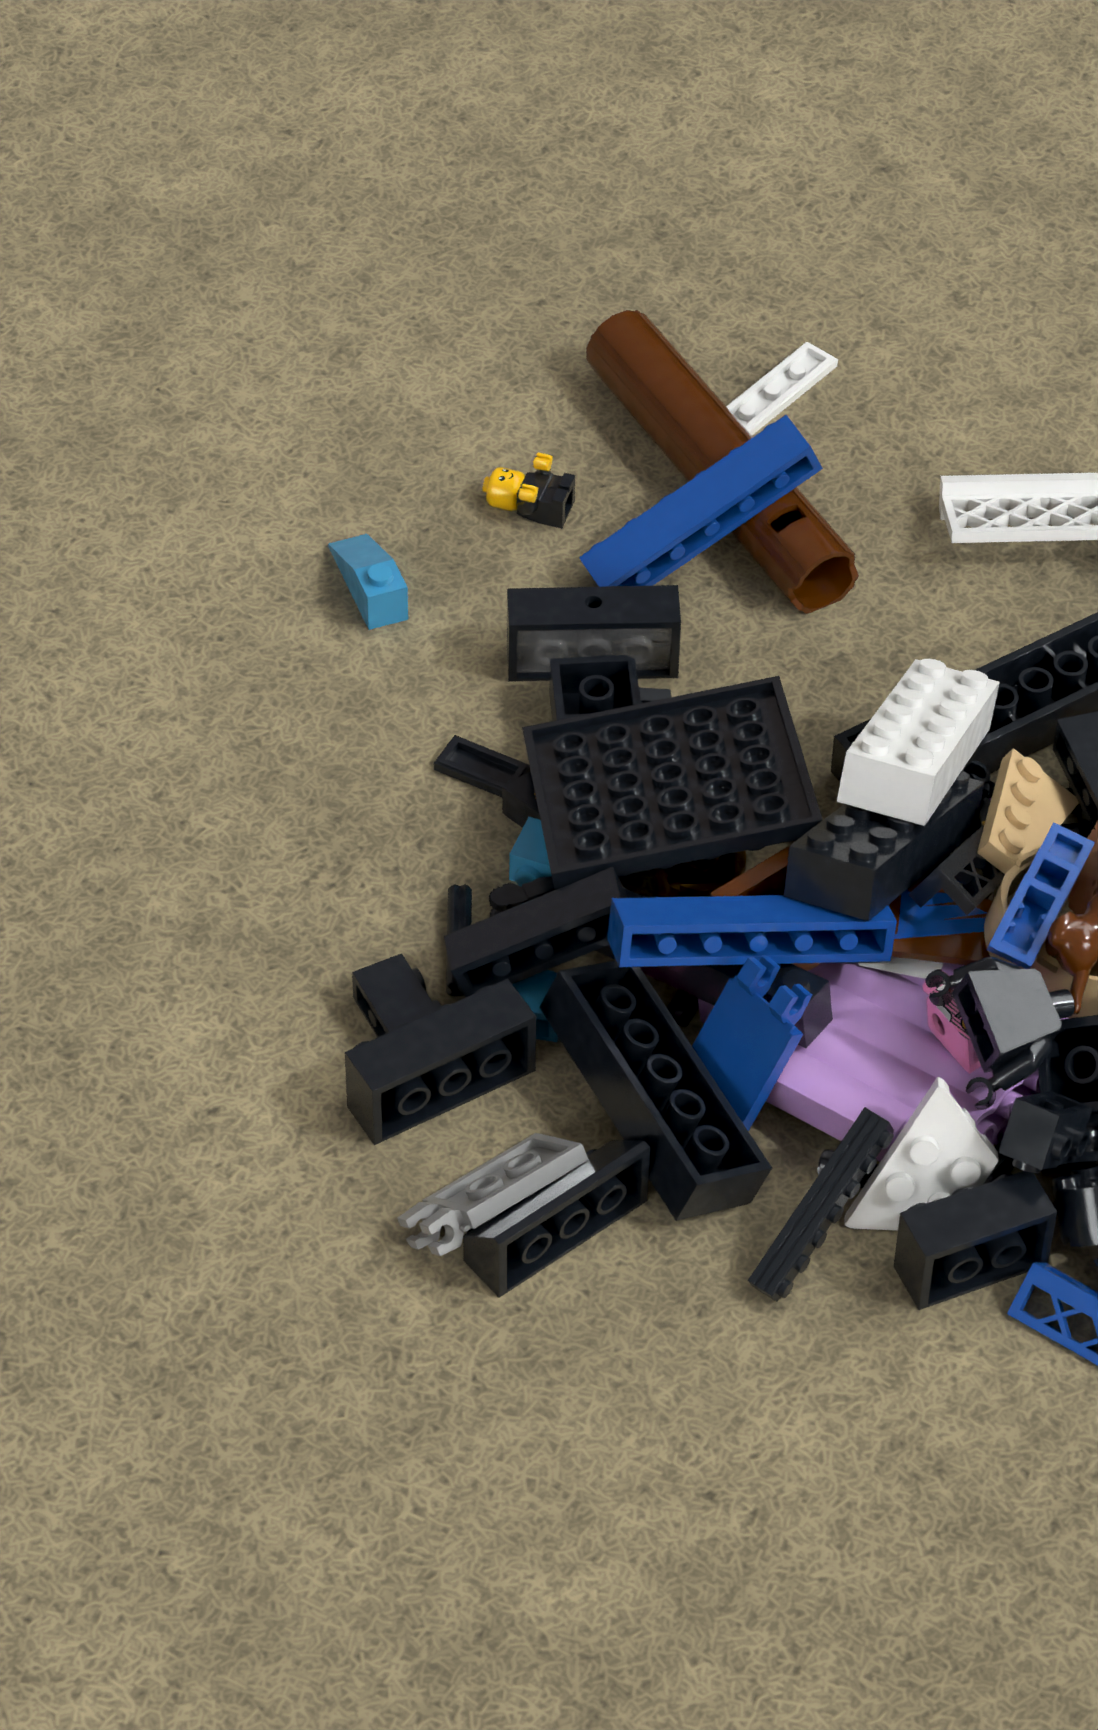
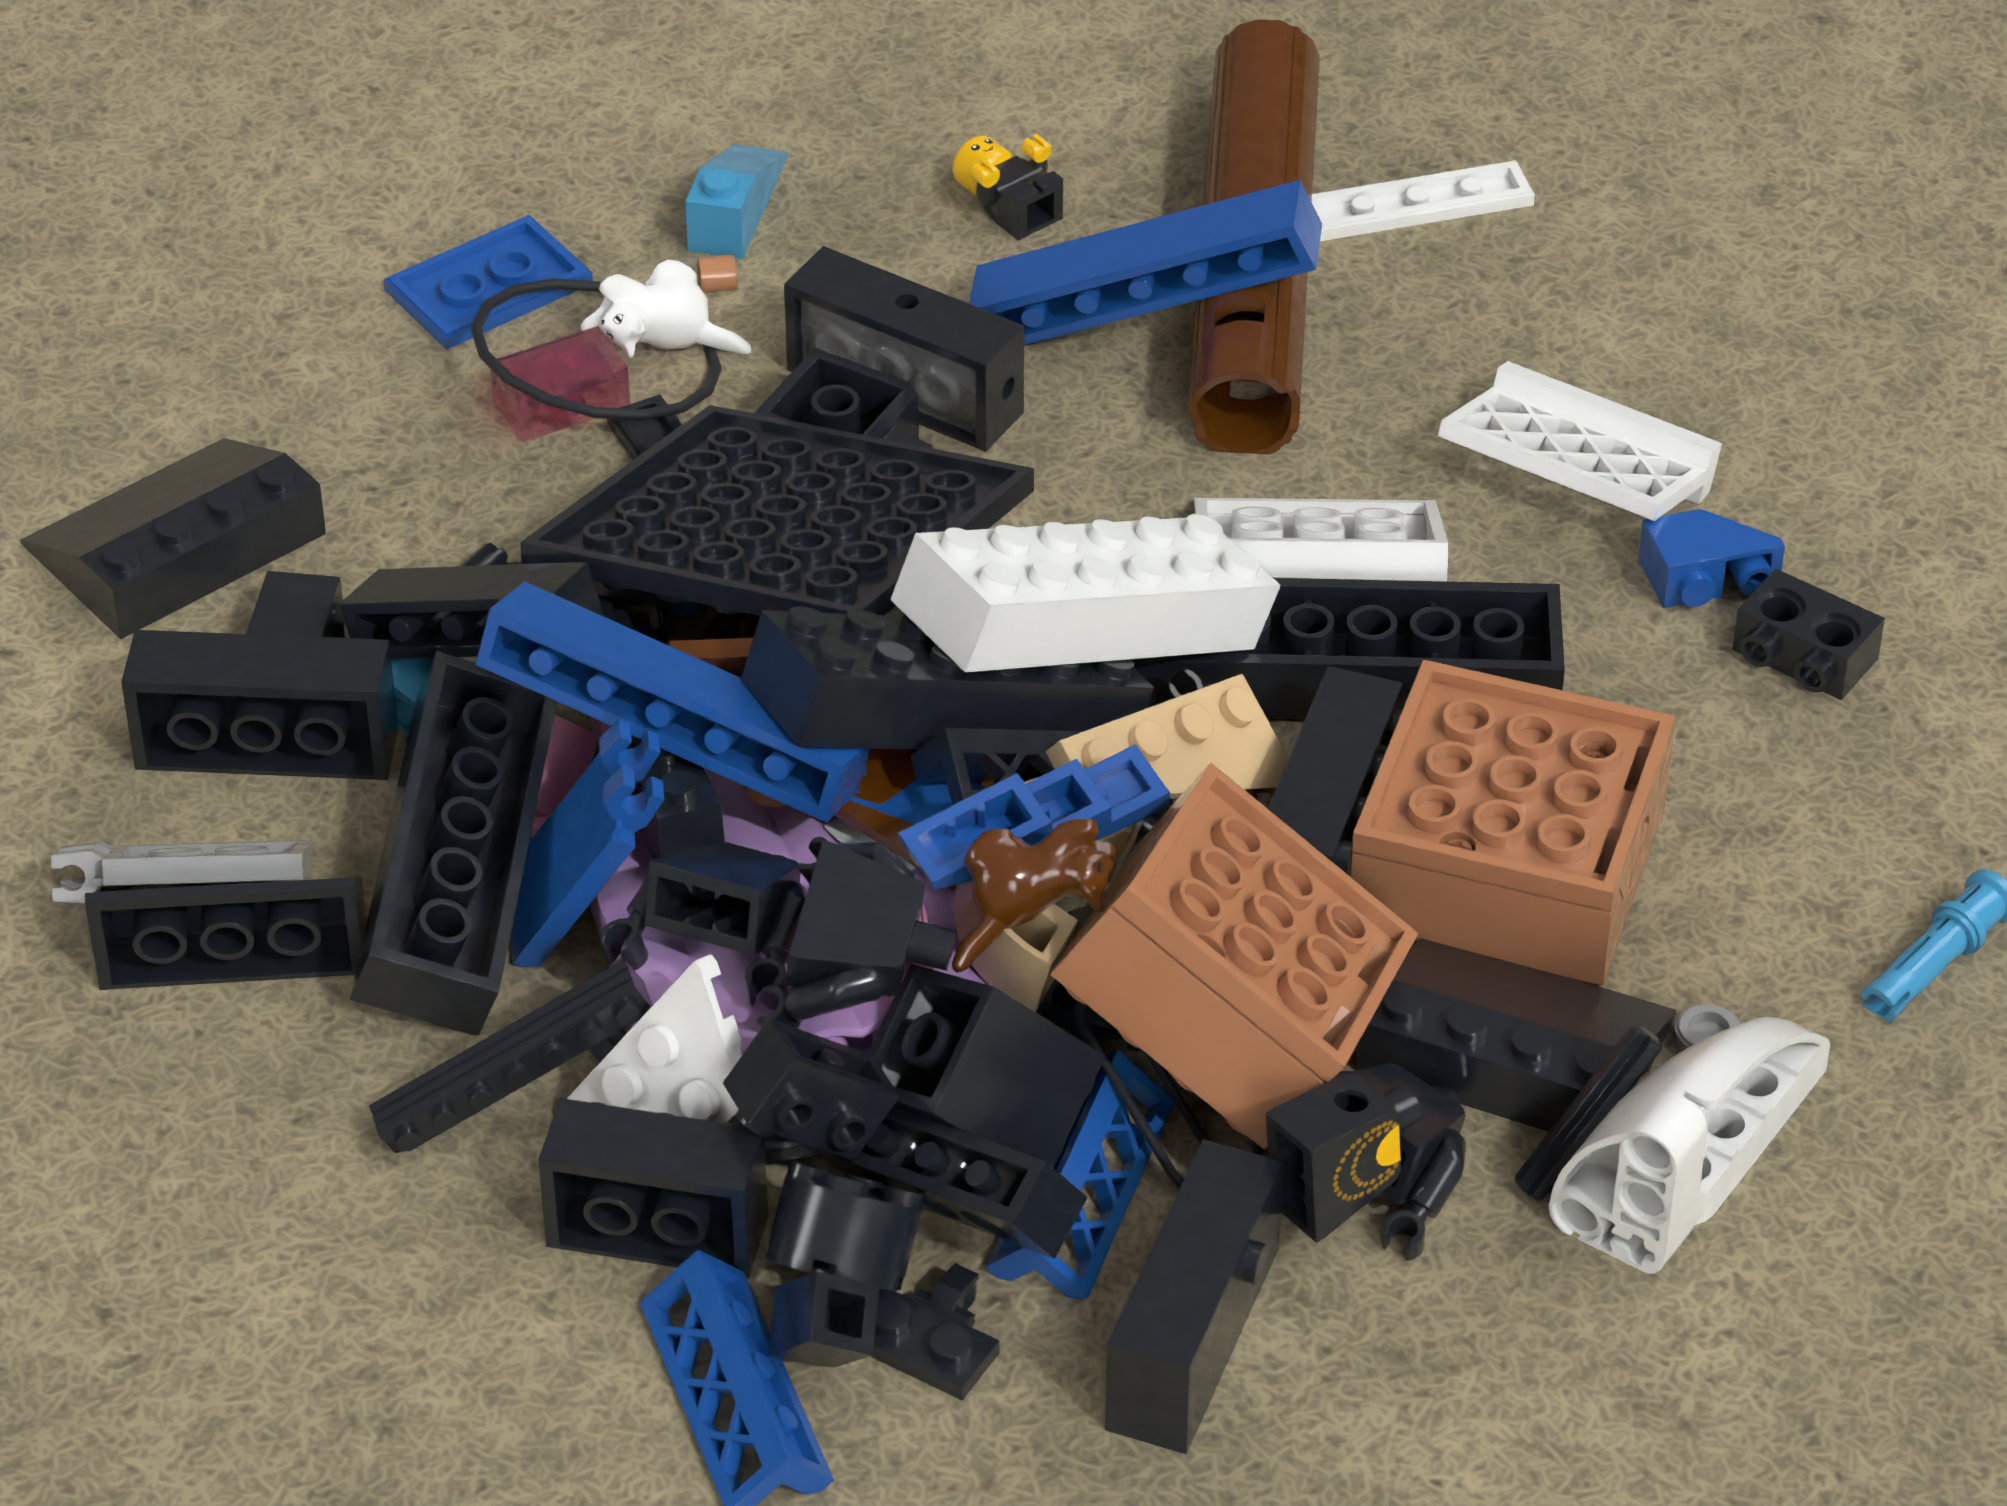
camera: 35 degrees right, 5 degrees down
(245, 972) = (181, 533): none -> black slope
(268, 710) = (450, 287): none -> blue tile
(389, 770) = (566, 404): none -> black piece
(392, 757) = (572, 367): none -> clear pink brick
(408, 636) = (717, 273): none -> nougat piece
(417, 681) = (663, 312): none -> white animal
(887, 1038) = (720, 898): none -> black torso
(957, 633) = (1320, 542): none -> white slope

